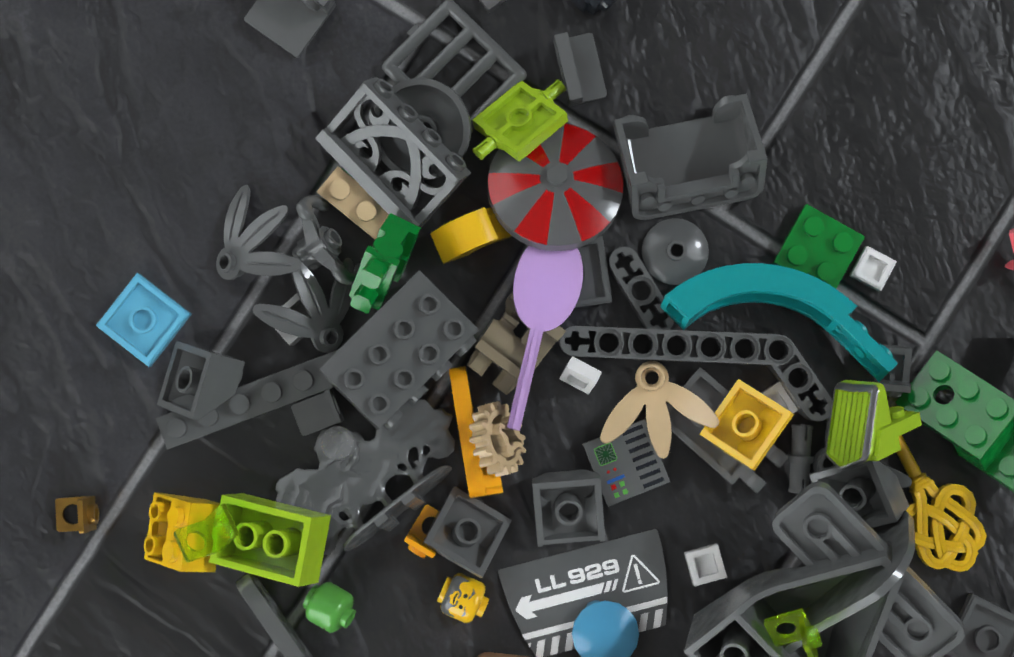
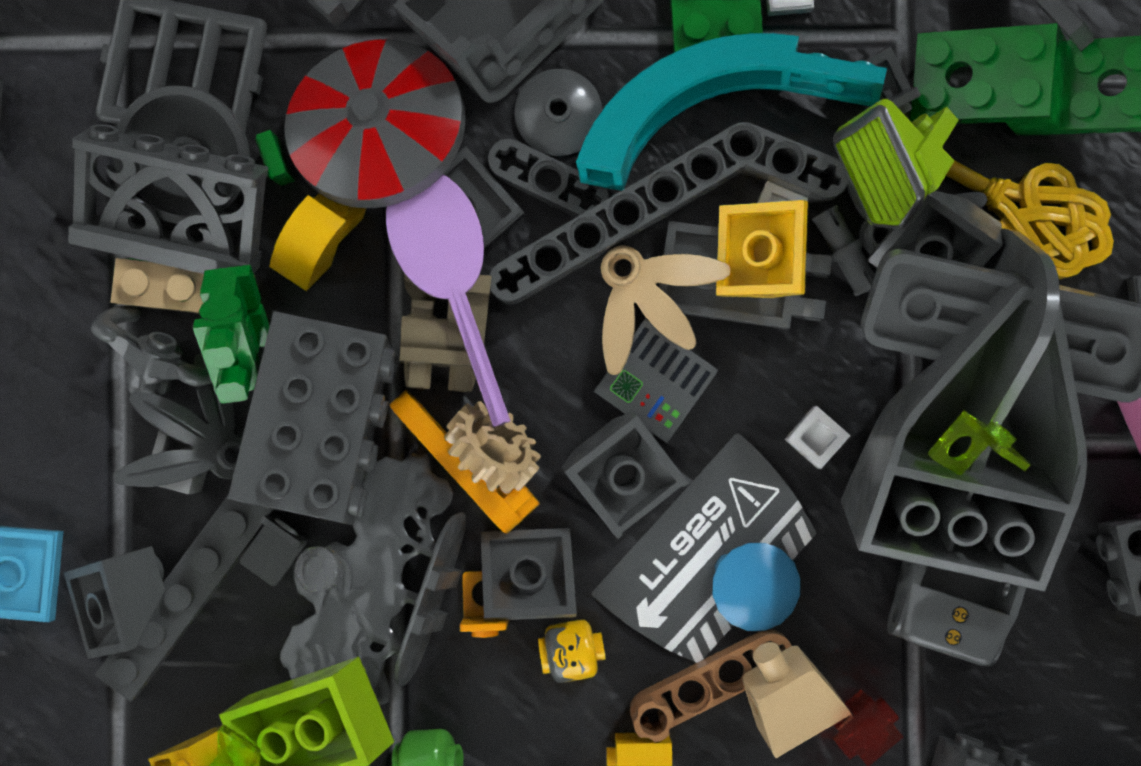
camera: 35 degrees left, 0 degrees up
(238, 255) = (67, 431): dark grey plant -> none
(477, 169) = (274, 158): none -> green tile
(520, 120) = (287, 73): lime plate -> none
(580, 375) = (540, 316): white tile -> none

